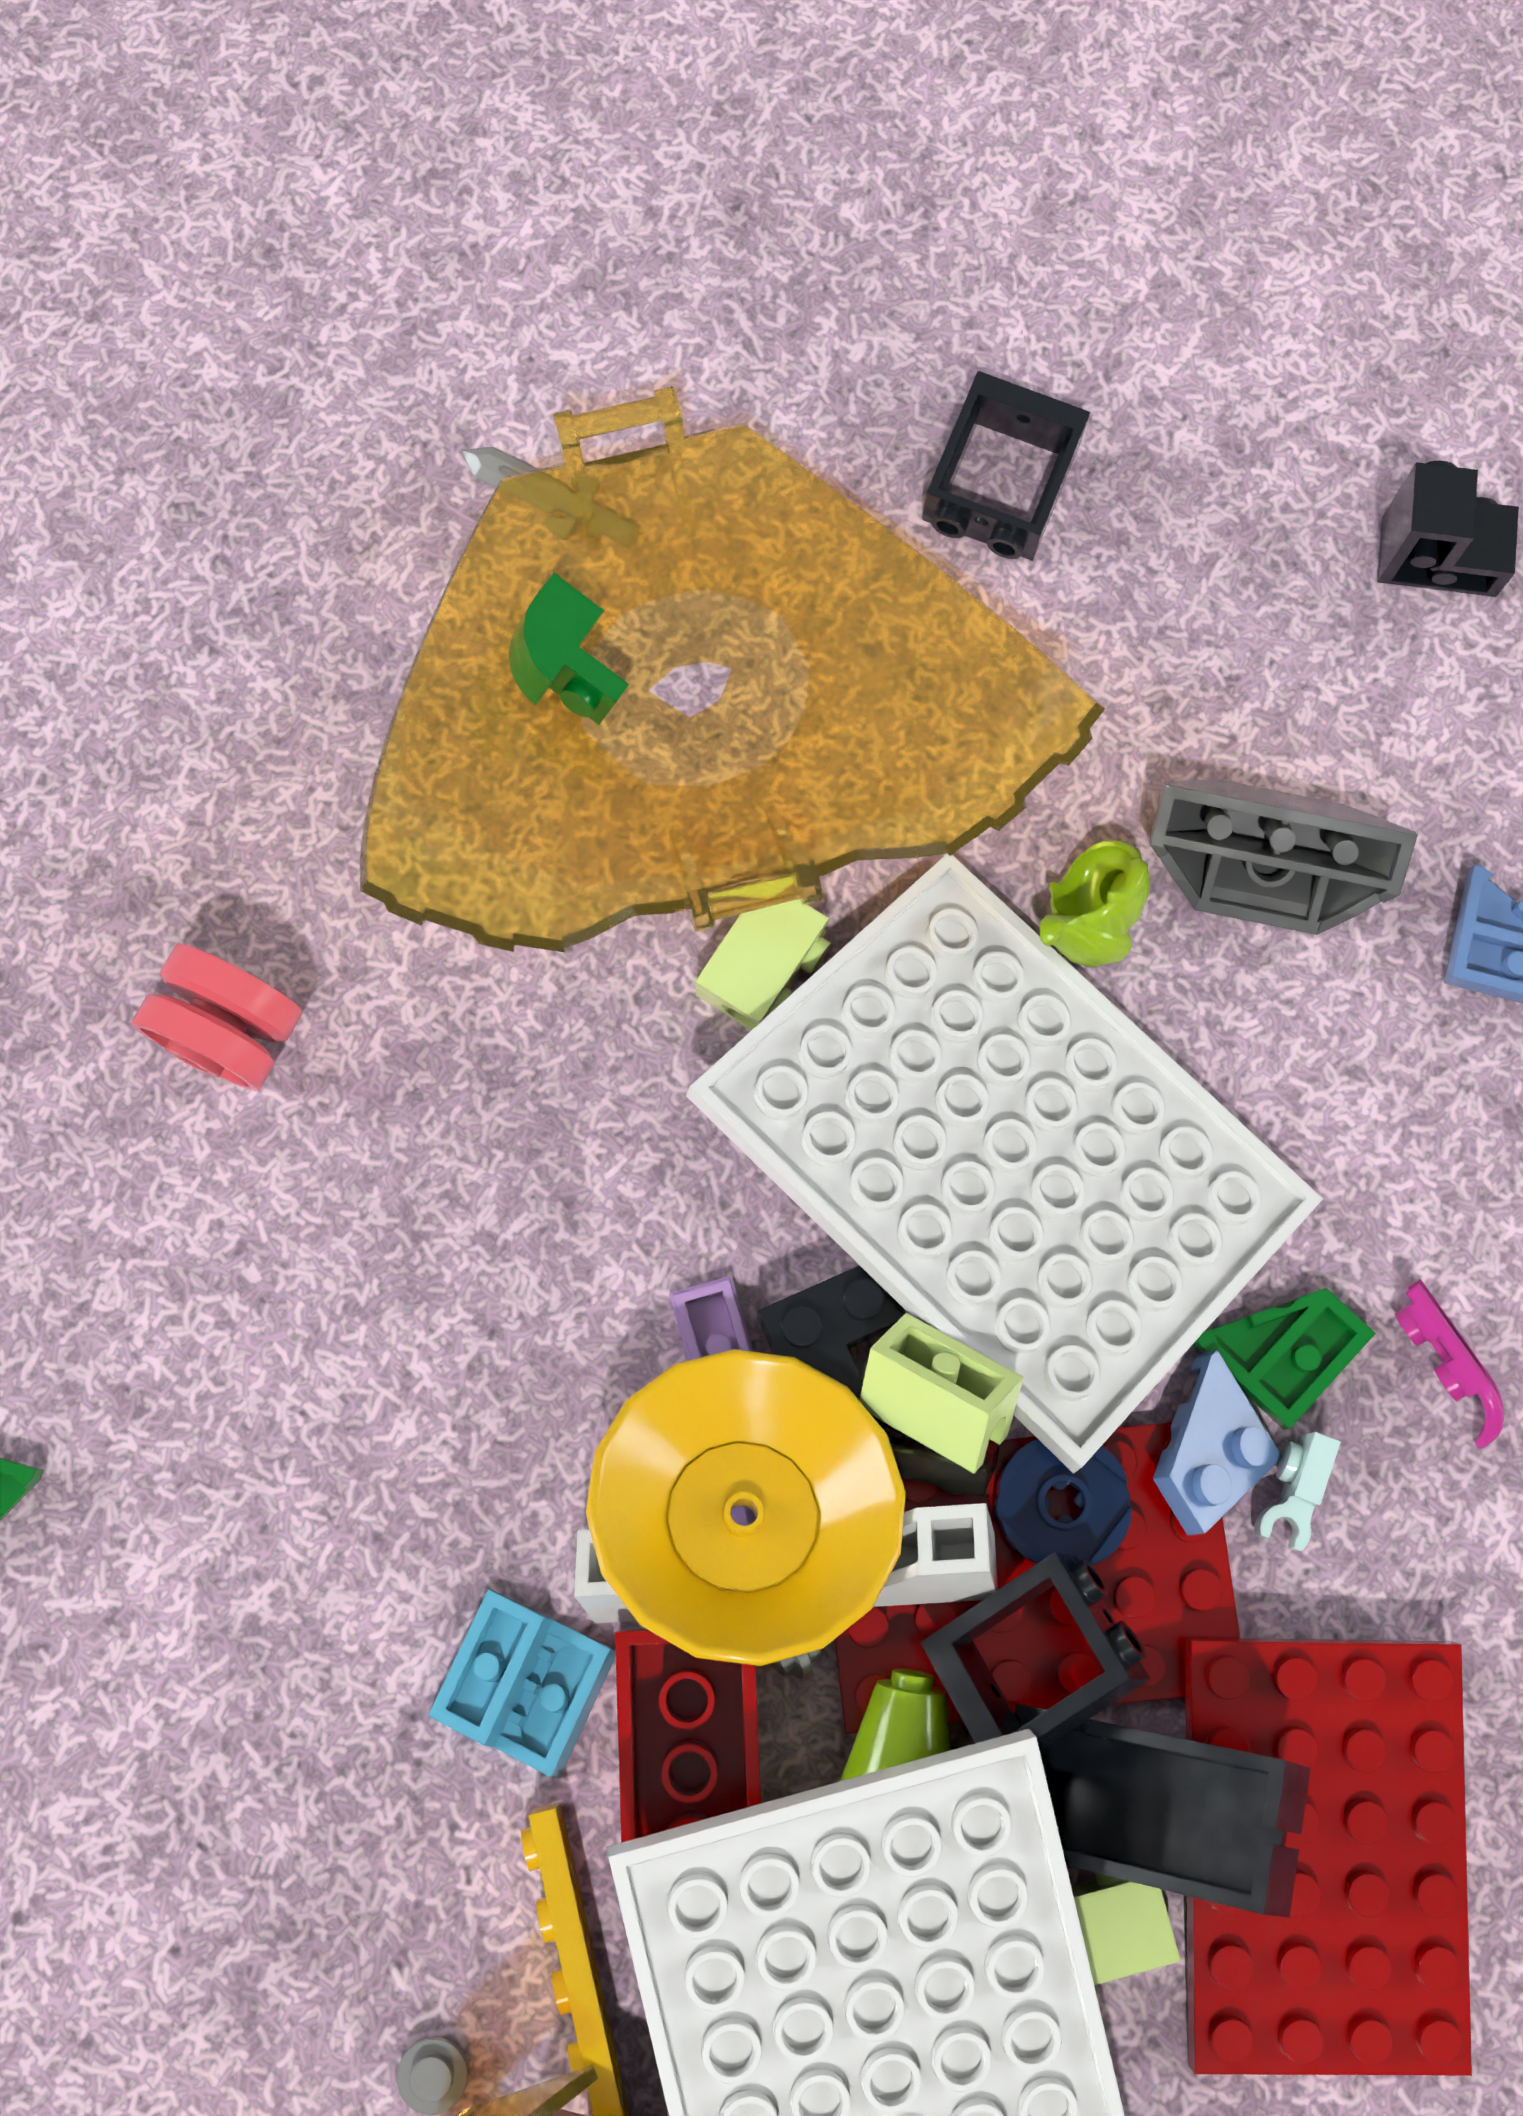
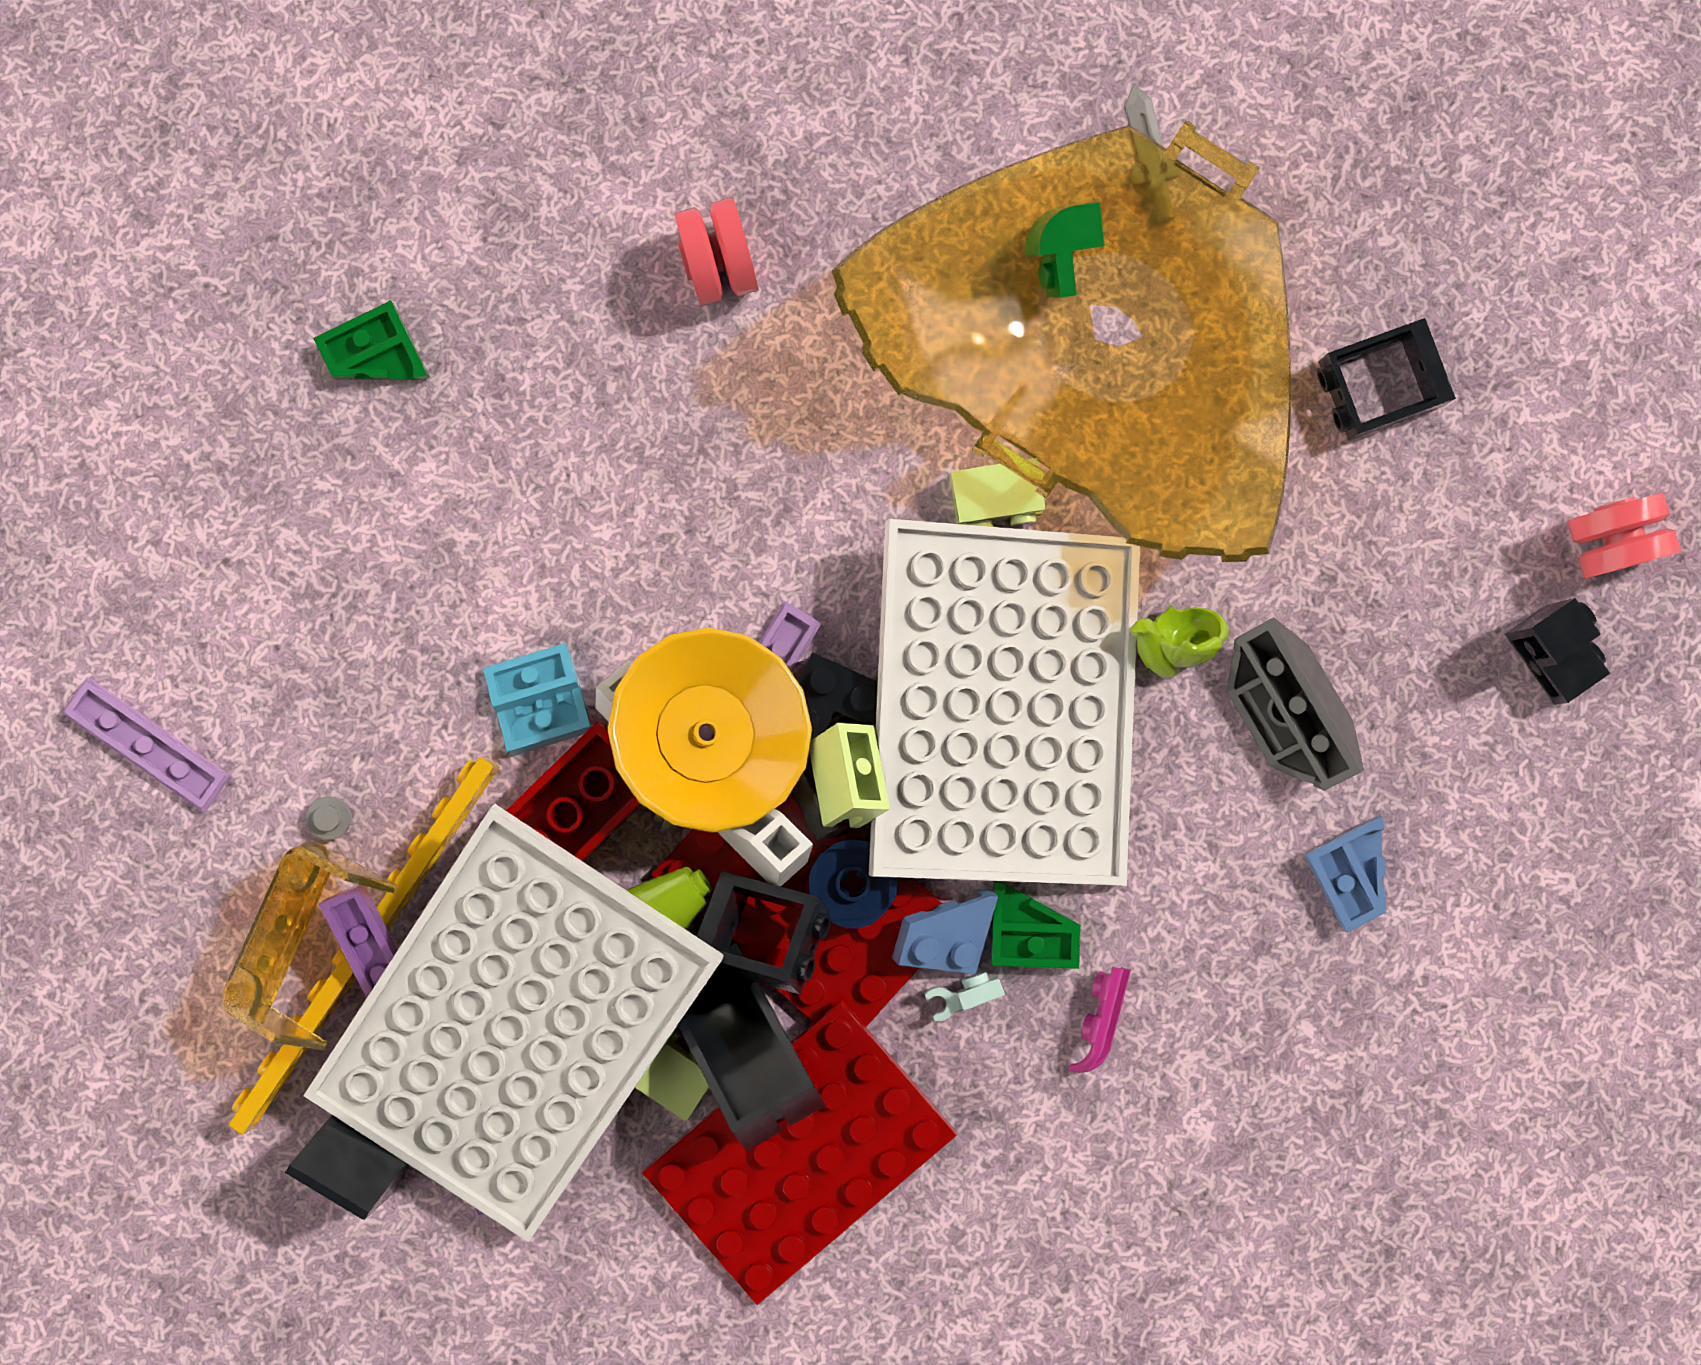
camera: 45 degrees right, 10 degrees up
(1382, 373) = (1623, 534): none -> coral wheel

